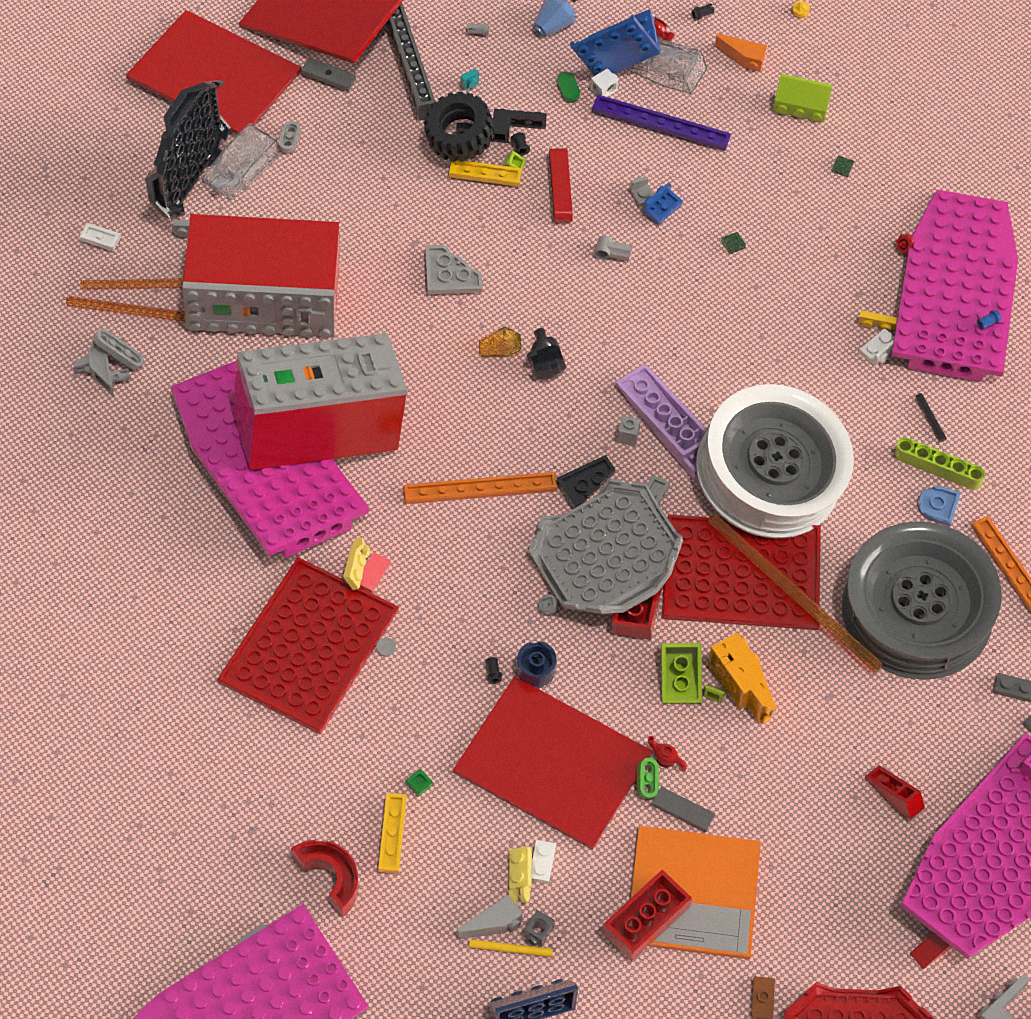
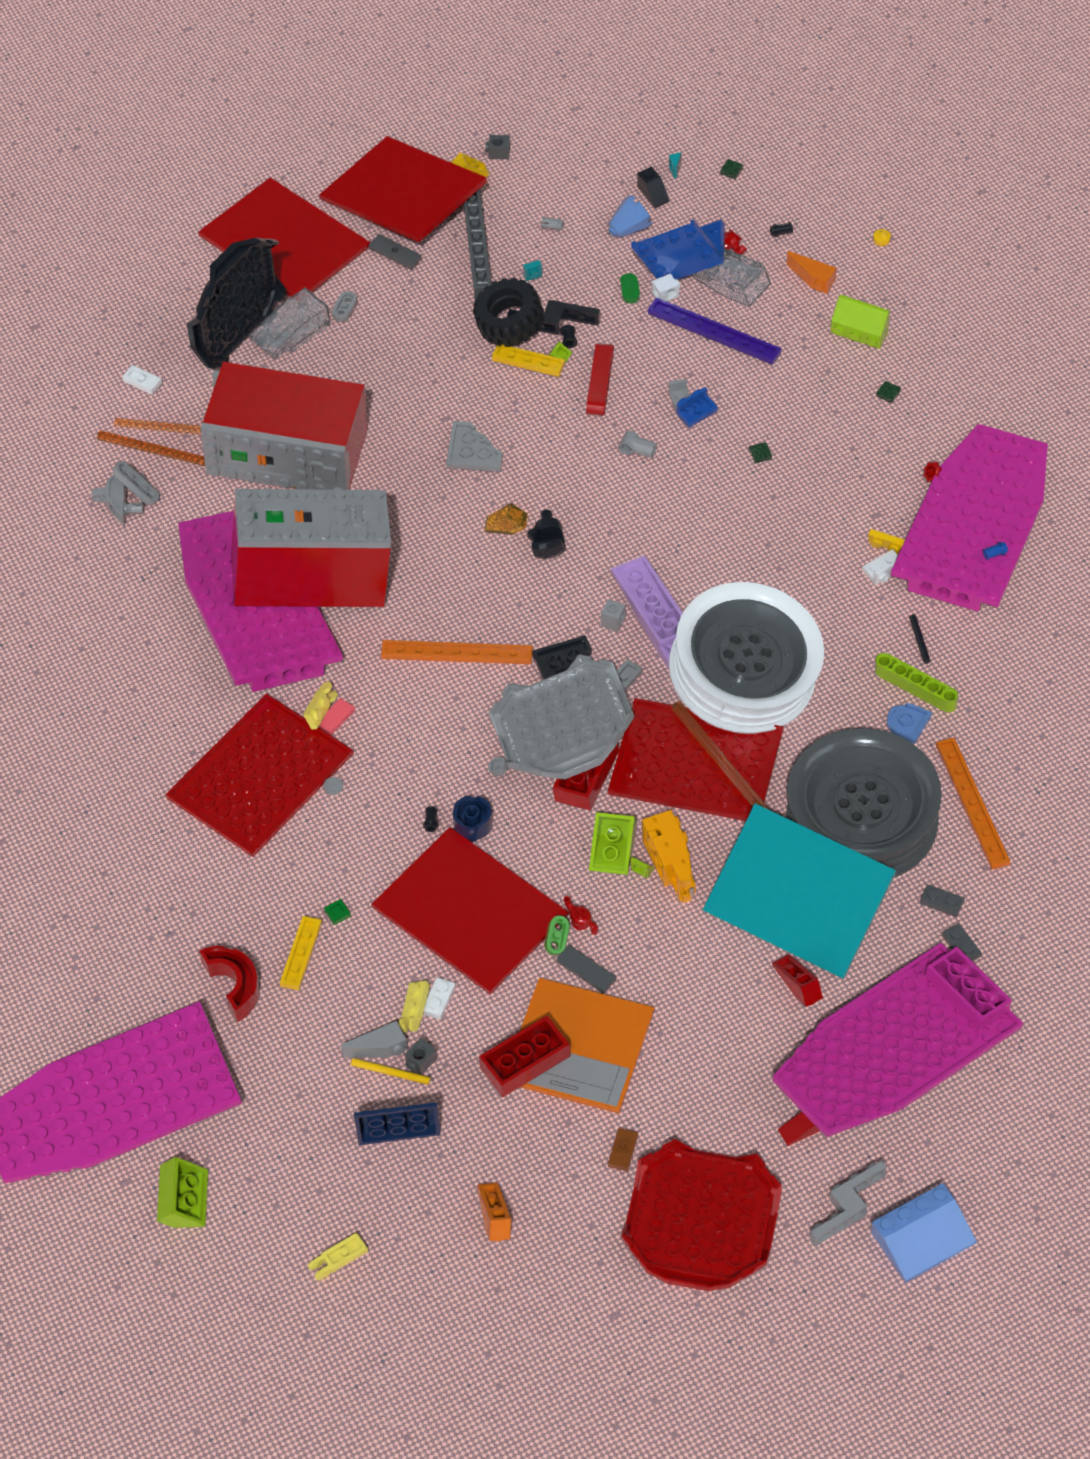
camera: 15 degrees right, 5 degrees down
(881, 699) = (799, 891): none -> teal tile

